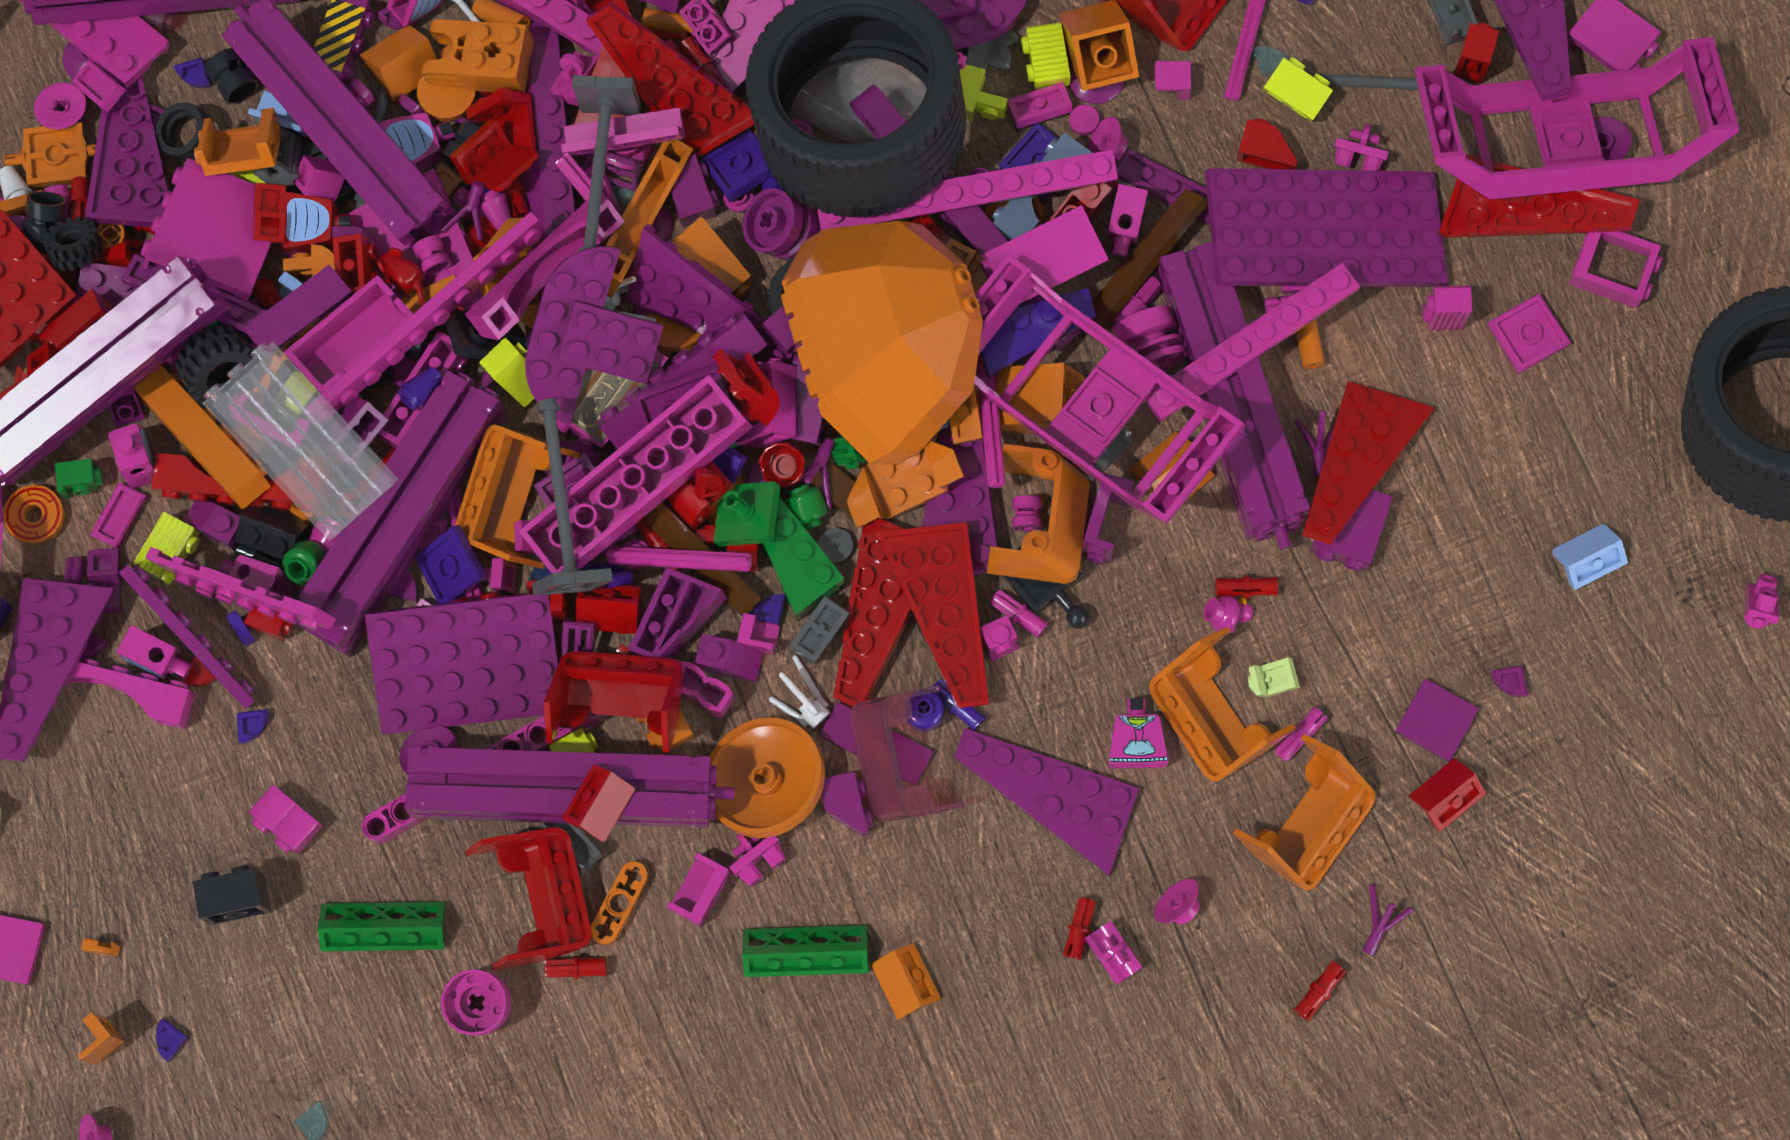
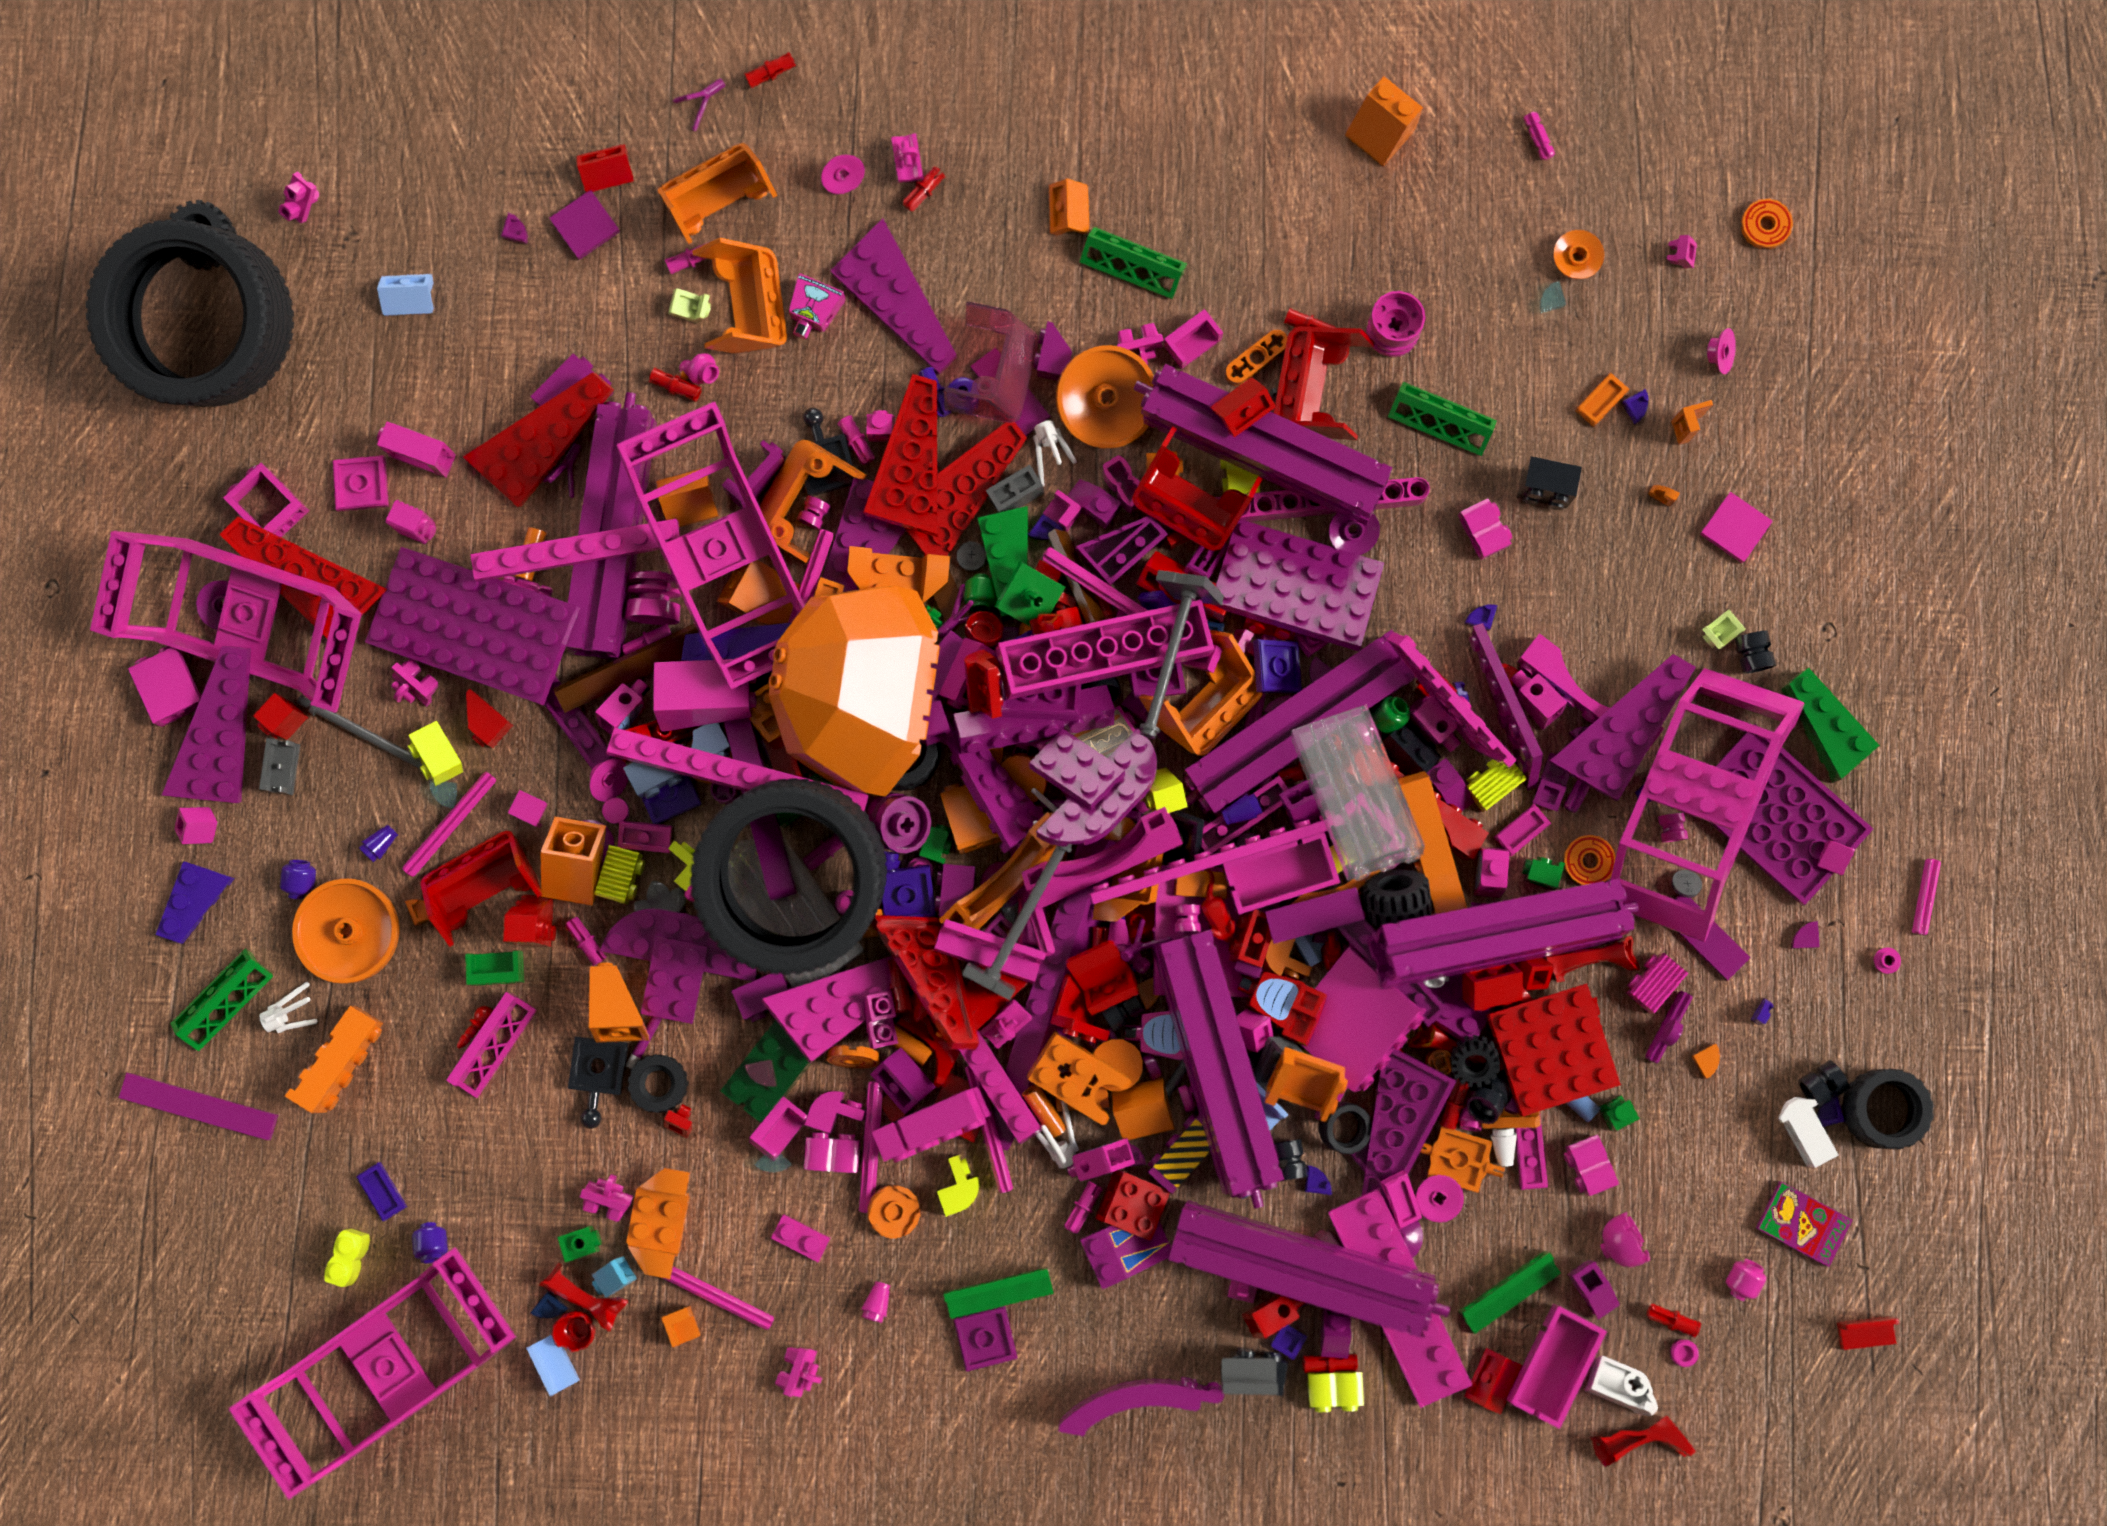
camera: 155 degrees left, 5 degrees up
(211, 1029) = (1602, 399): none -> orange tile
(731, 226) = (937, 844): none -> green brick
(1485, 385) = (415, 449): none -> dark pink window

